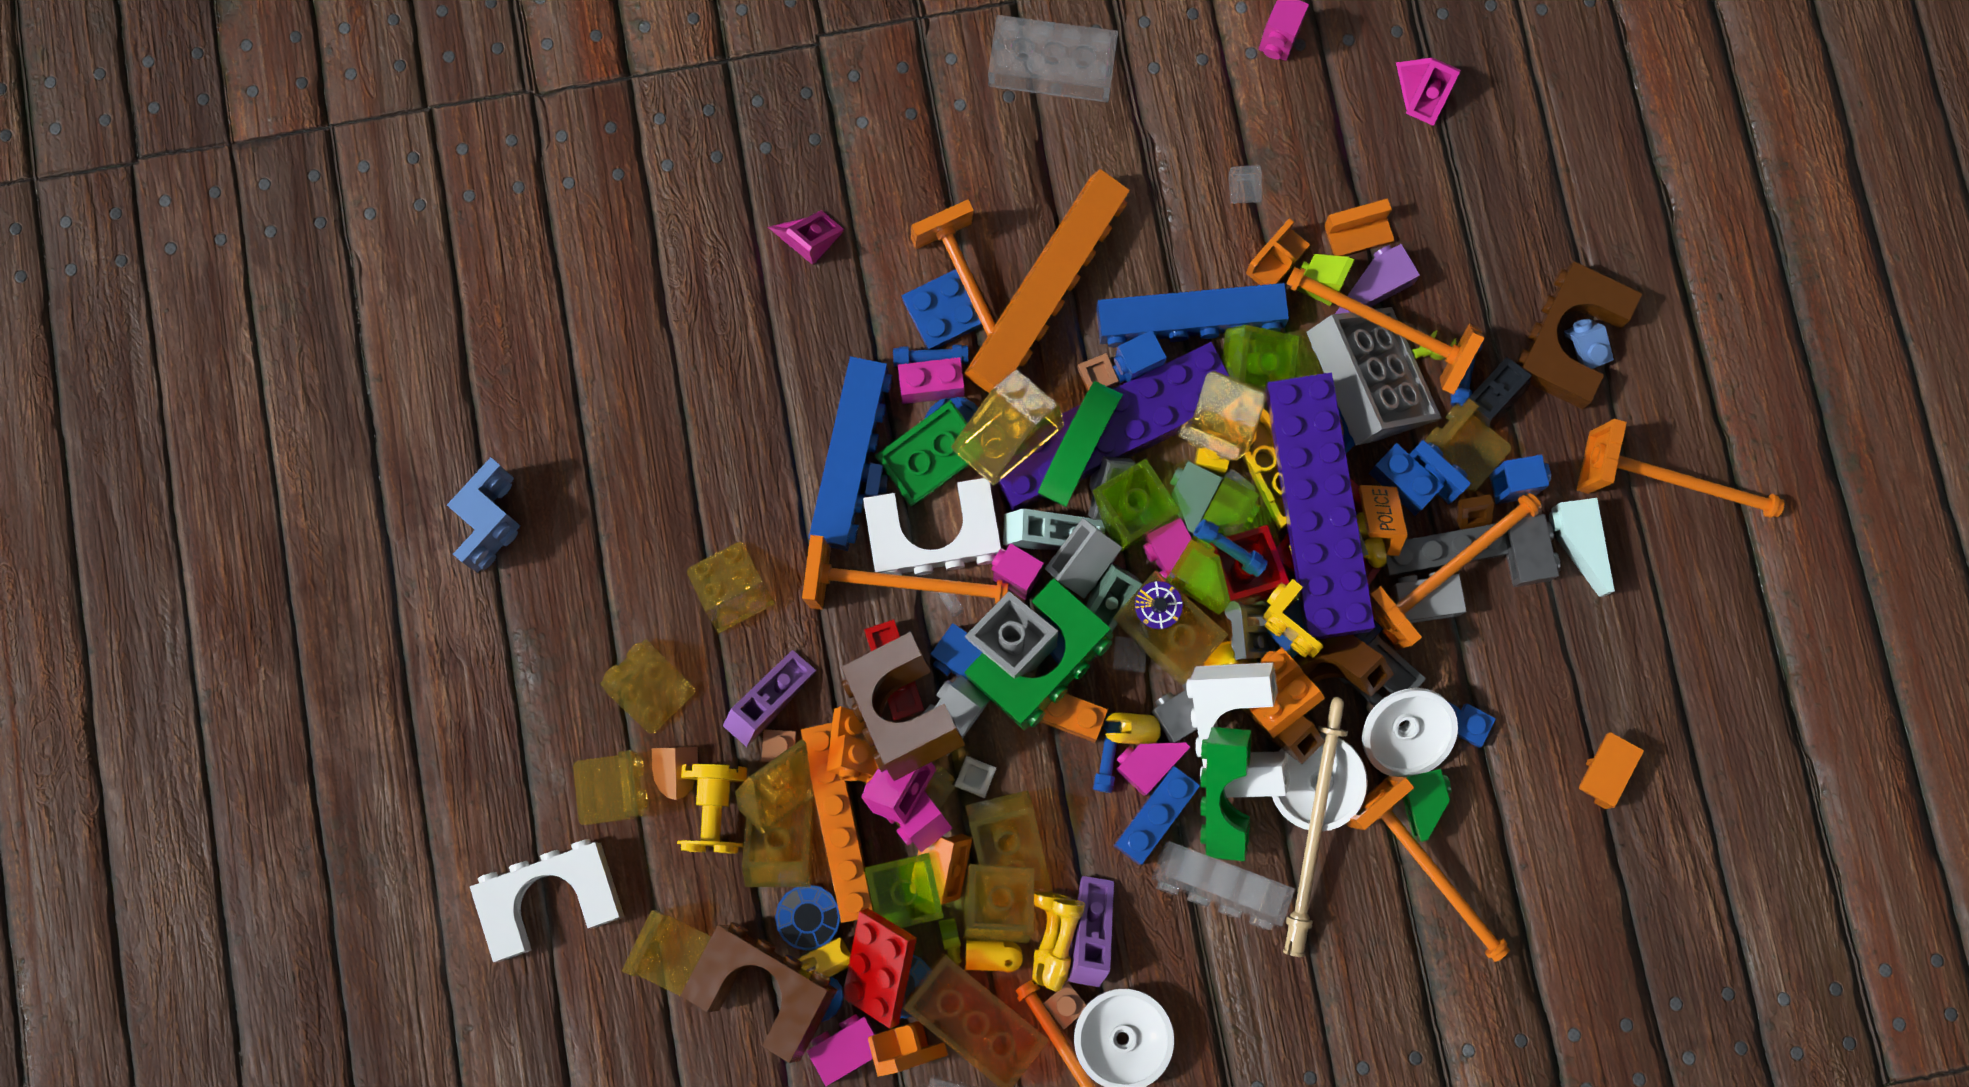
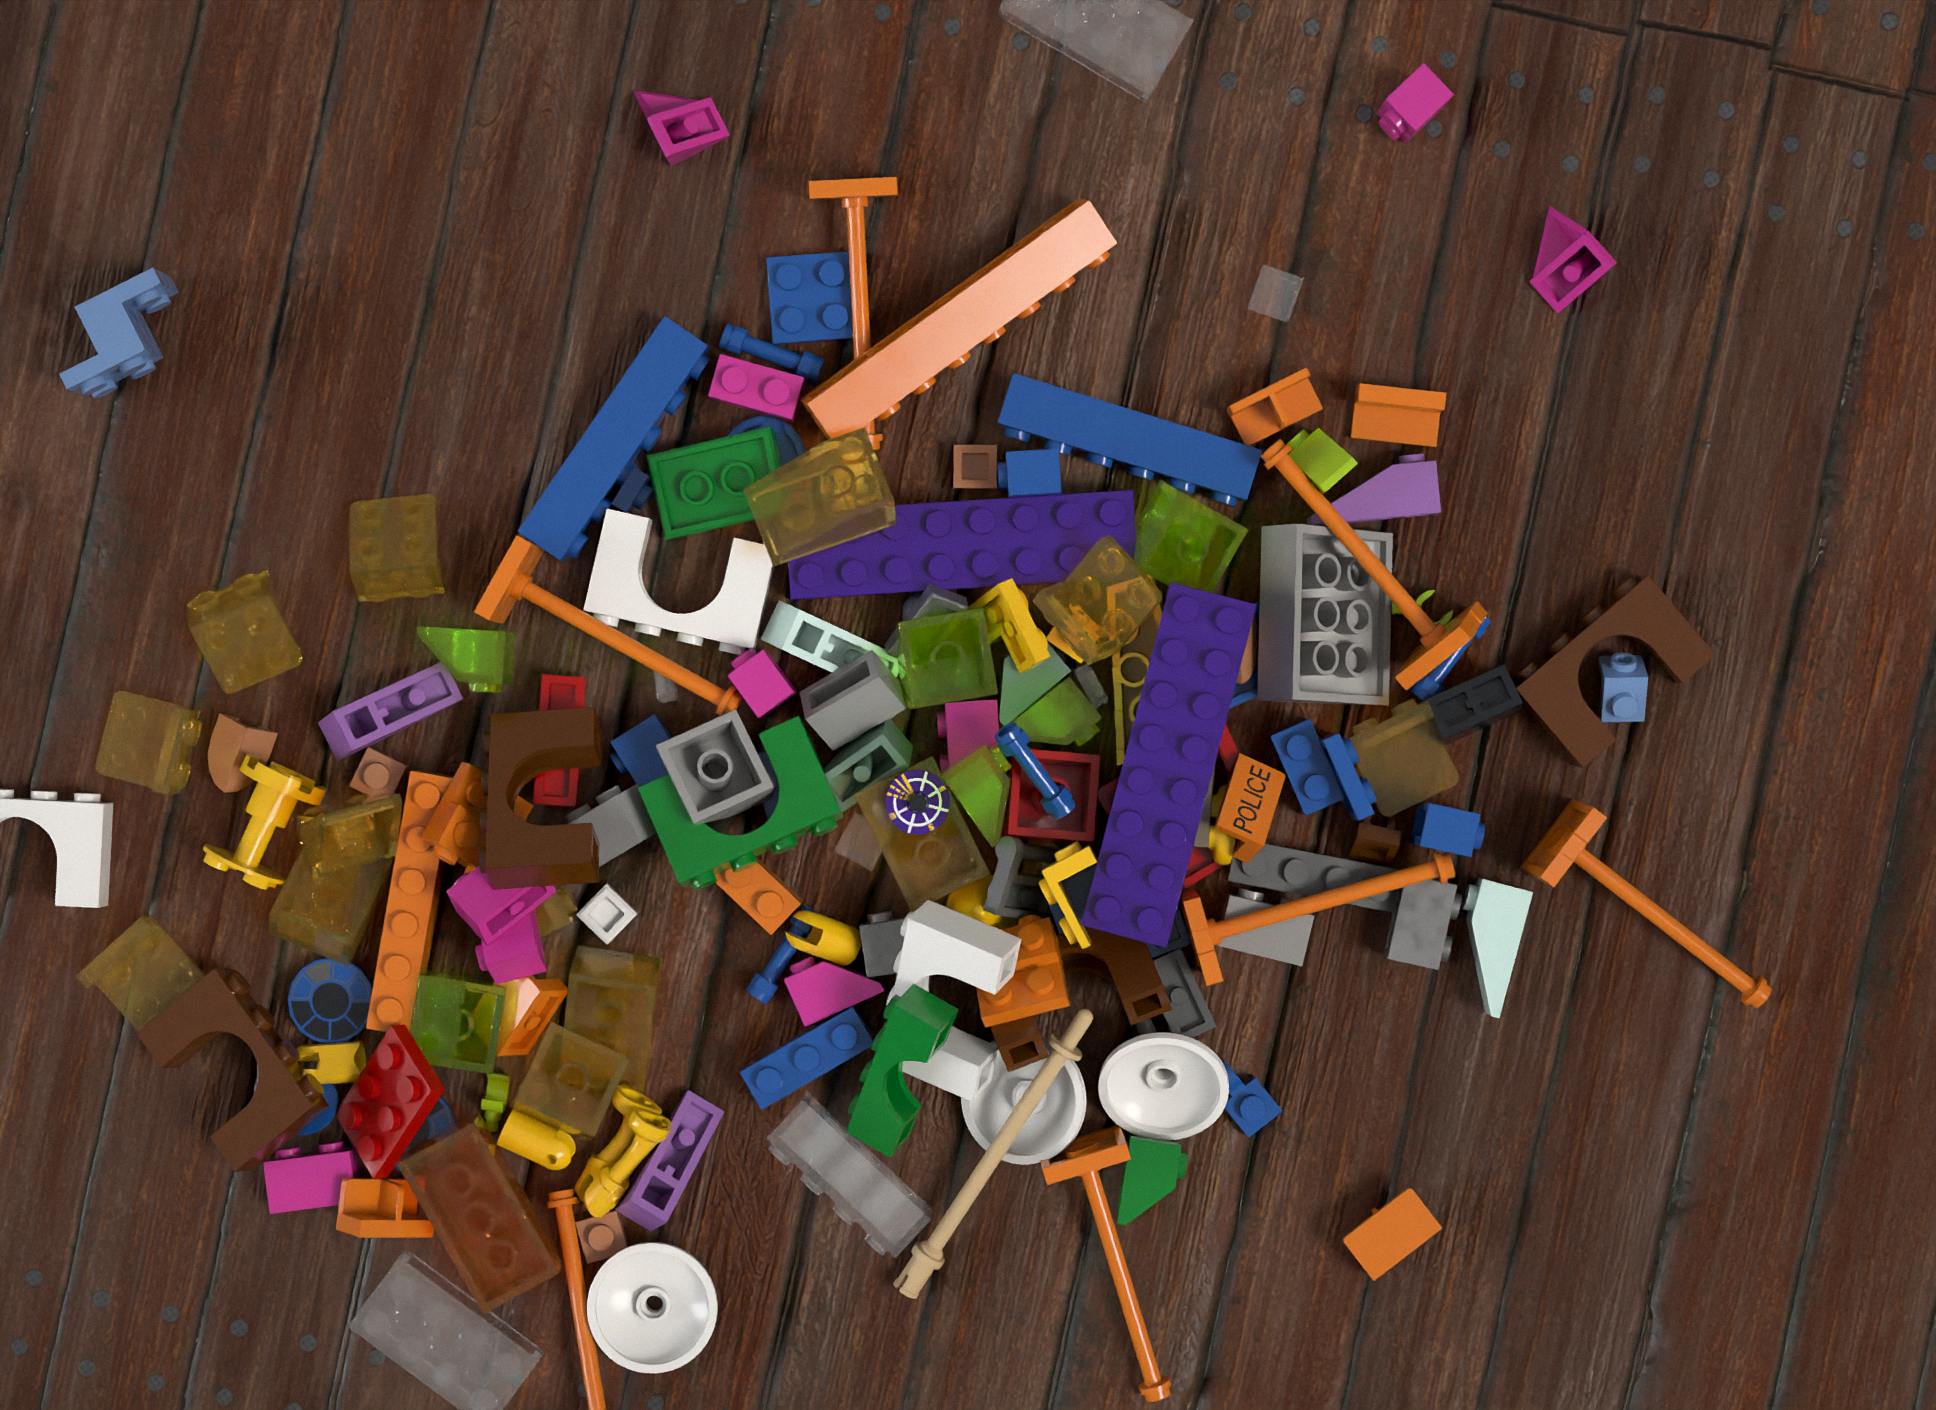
camera: 25 degrees right, 10 degrees up
(811, 632) = (473, 655): none -> clear neon green slope
(1079, 443) = (907, 554): green slope -> none
(1172, 460) = (1010, 620): none -> yellow plate

